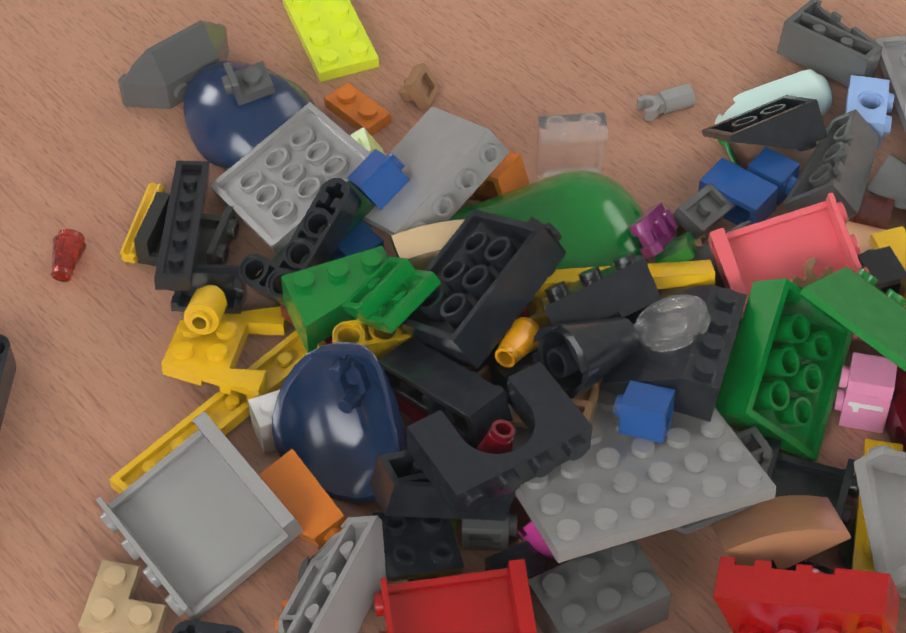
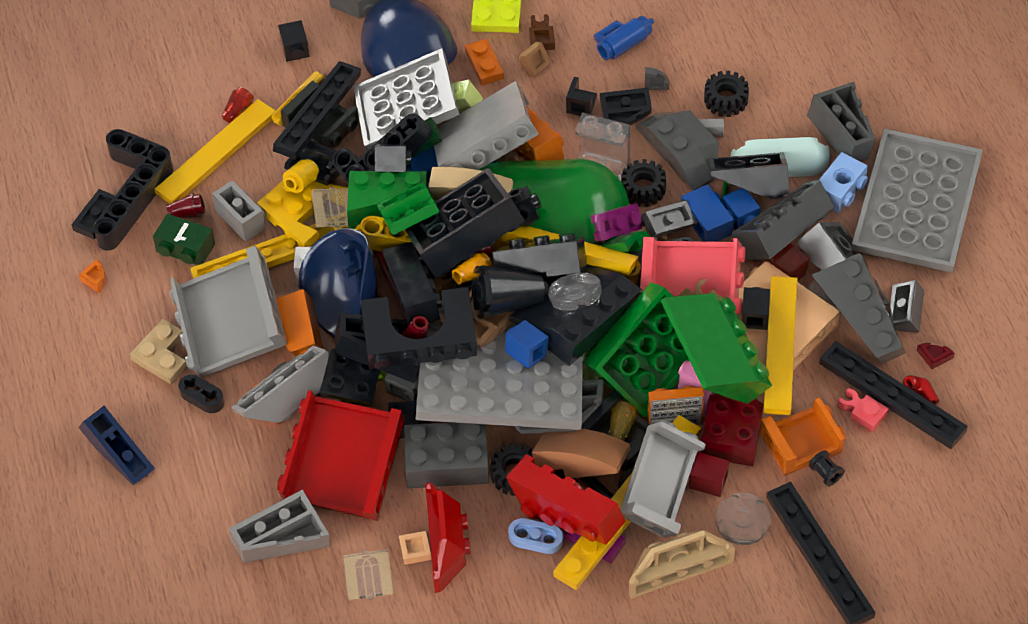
camera: 25 degrees right, 5 degrees up
(62, 402) = (187, 207): none -> dark red cone
(64, 324) = (215, 152): none -> yellow tile
(80, 445) = (183, 240): none -> dark green brick
(103, 156) = (293, 40): none -> black brick
(141, 382) = (239, 211): none -> light grey brick
(247, 83) = (404, 20): dark grey bracket -> none
(267, 336) = (330, 207): none -> clear piece
(329, 242) = (392, 157): none -> brick
(379, 177) = (450, 122): blue brick -> none
(407, 56) = (542, 33): none -> reddish brown plate
(503, 118) = (579, 100): none -> black panel
(511, 32) = (621, 37): none -> blue piece
(563, 99) = (626, 105): none -> black wing
(578, 67) = (656, 79): none -> dark grey tile
(644, 171) = (644, 171): none -> black tyre
(660, 128) = (682, 144): none -> dark grey wedge
(670, 45) = (723, 104): none -> black tyre
(687, 567) = (503, 459): none -> black tyre
(796, 469) = (622, 419): none -> clear yellow cone
(848, 428) = (668, 404): none -> tile

